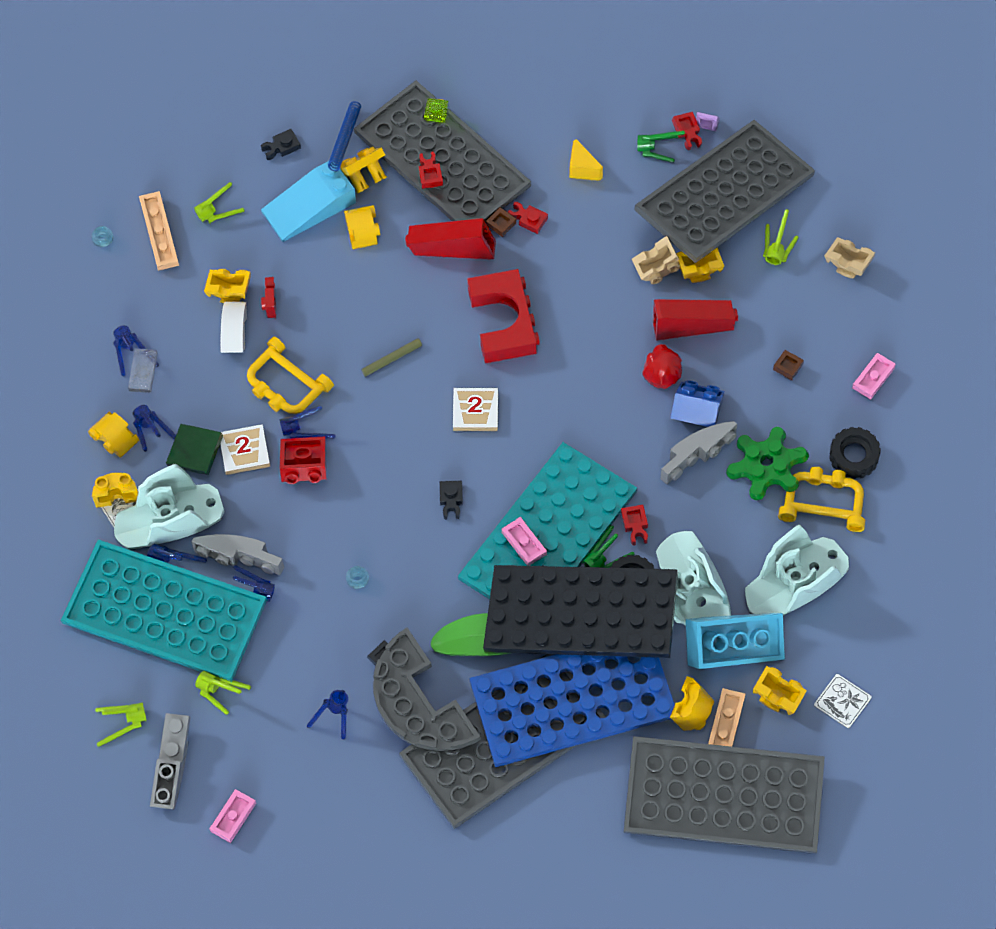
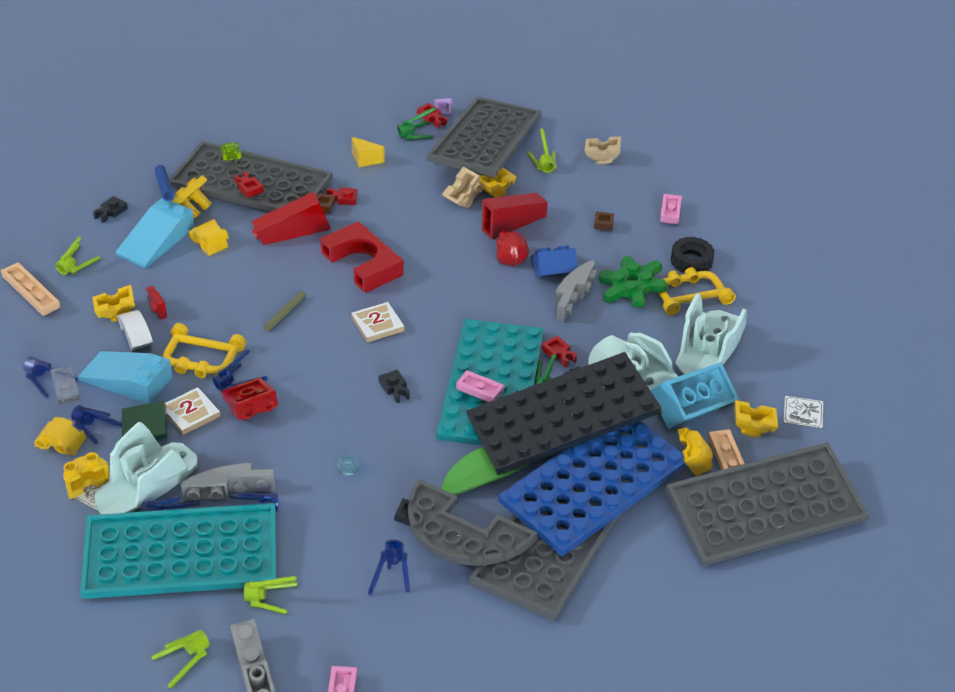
camera: 30 degrees left, 20 degrees down
(205, 380) = (129, 374): none -> medium azure slope

